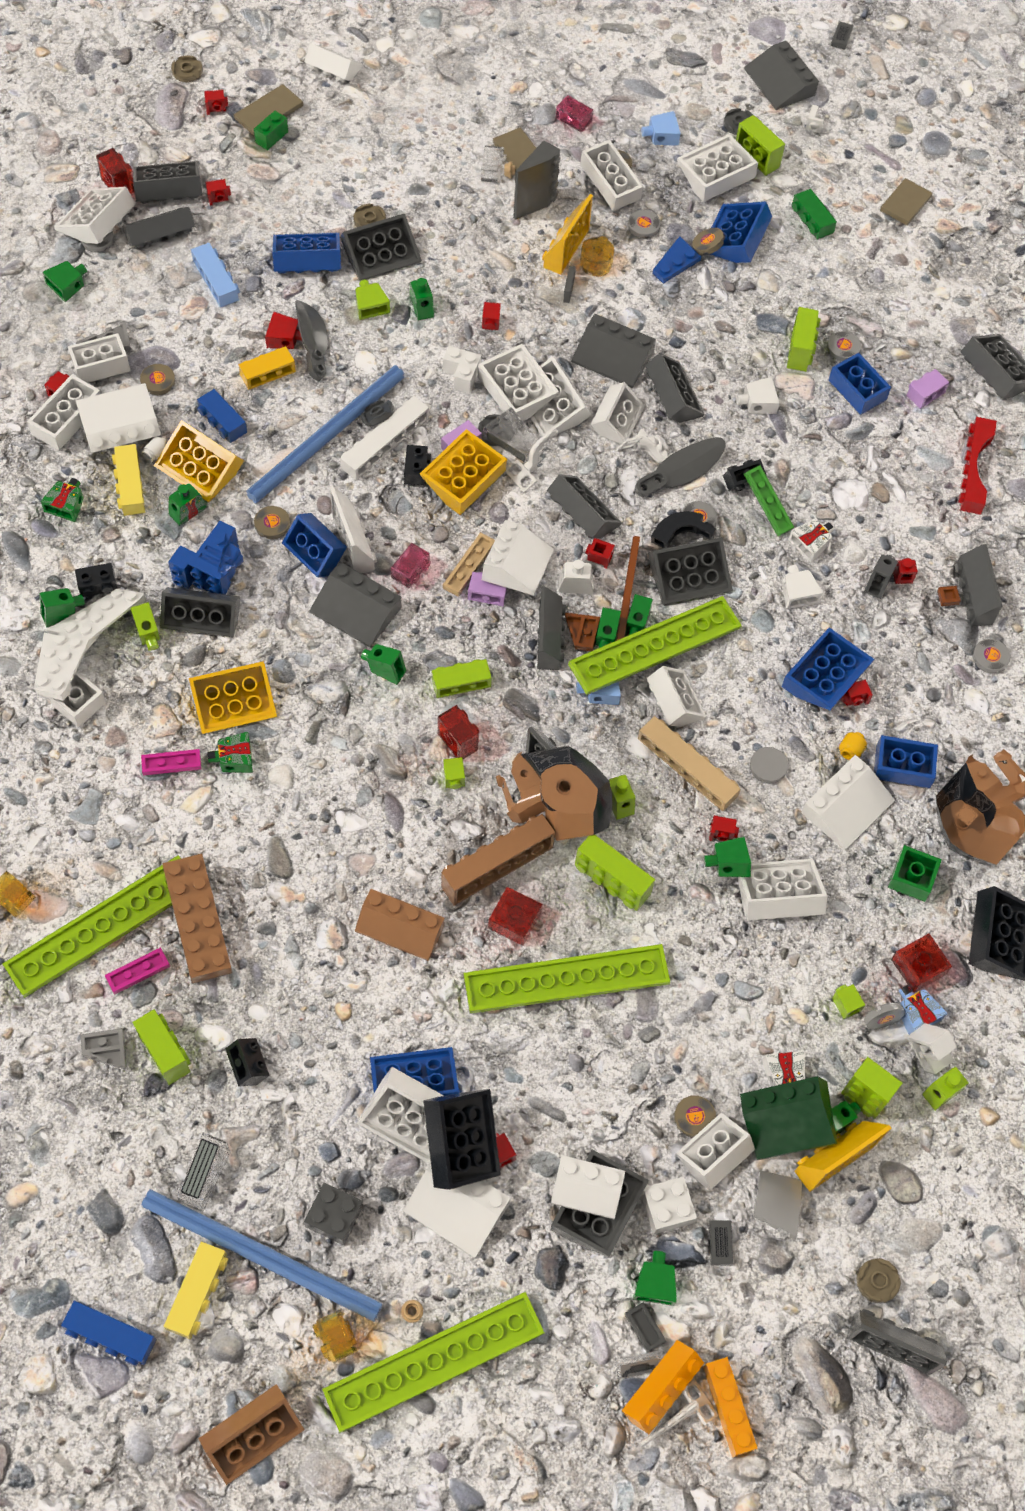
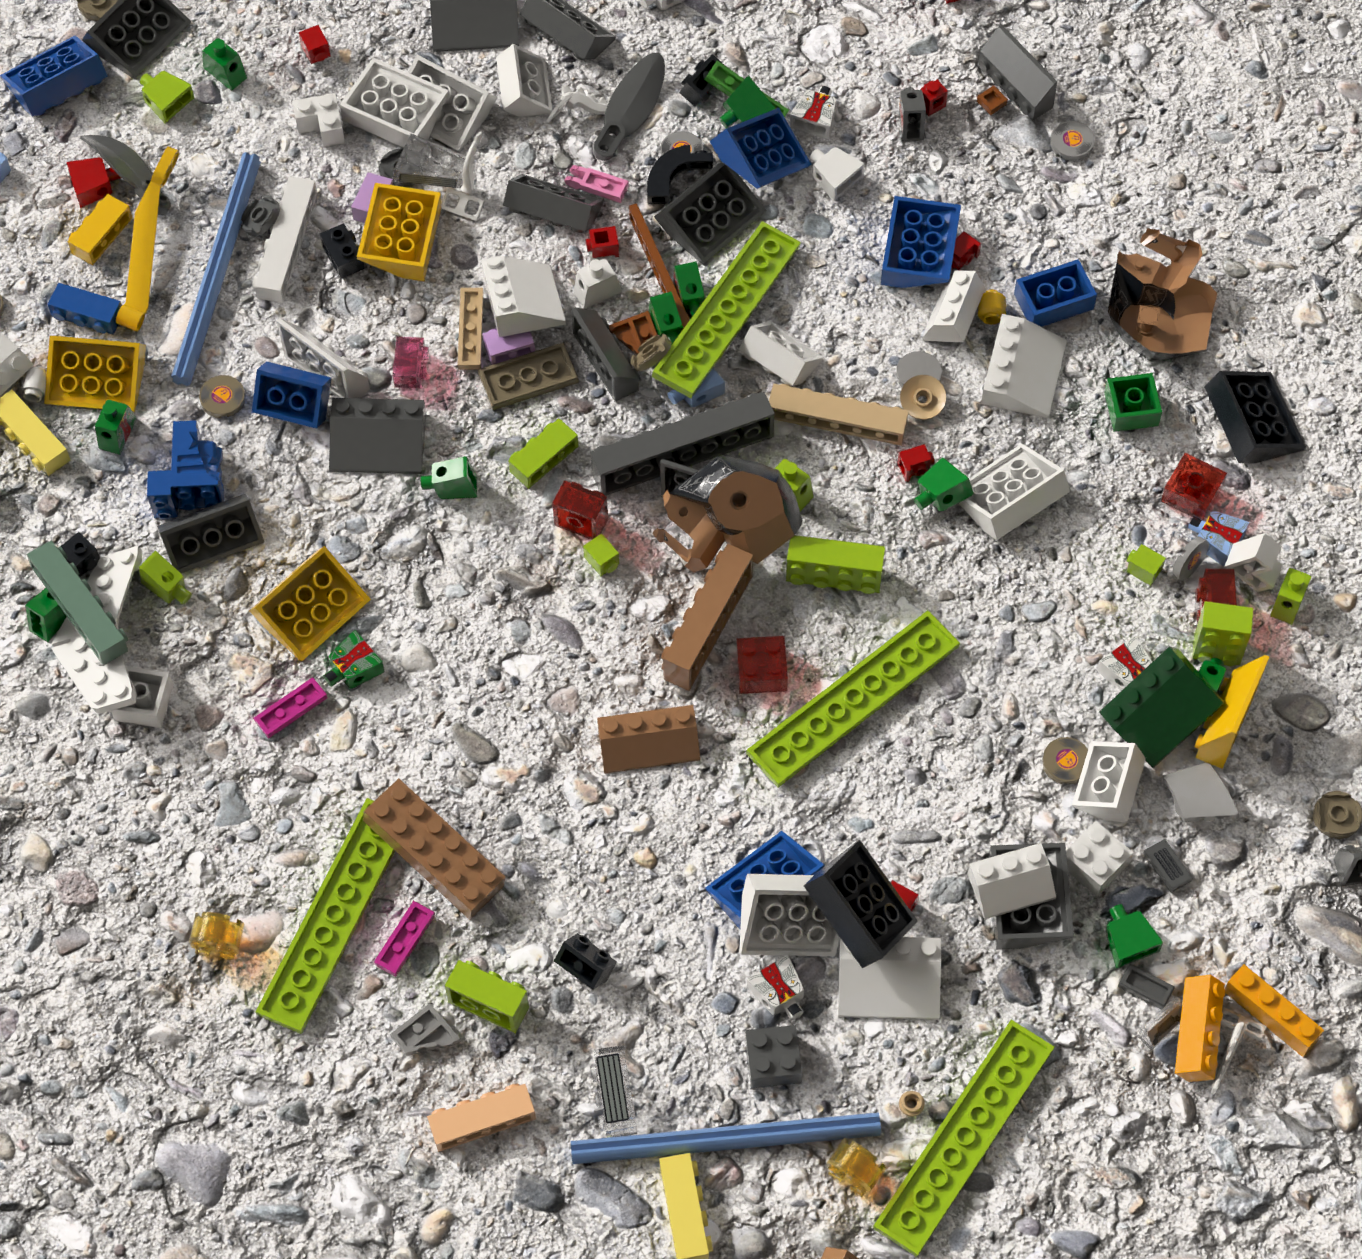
camera: 25 degrees left, 0 degrees up
(72, 610) = (78, 603): none -> sand green brick
(101, 1133) = (481, 1117): none -> light nougat brick
(286, 392) = (143, 243): none -> yellow piece
(372, 1164) = (778, 988): none -> torso
(487, 618) = (528, 376): none -> dark tan tile
(562, 723) = (683, 442): none -> dark grey brick
(580, 647) = (651, 352): none -> dark tan tile
(624, 509) = (597, 183): none -> bright pink hinge
(753, 544) = (761, 149): none -> blue slope
(760, 775) = (923, 386): none -> tan dish
(761, 507) = (745, 103): none -> green torso
(824, 732) = (955, 308): none -> white slope
(888, 1051) = (1216, 587): none -> clear red brick

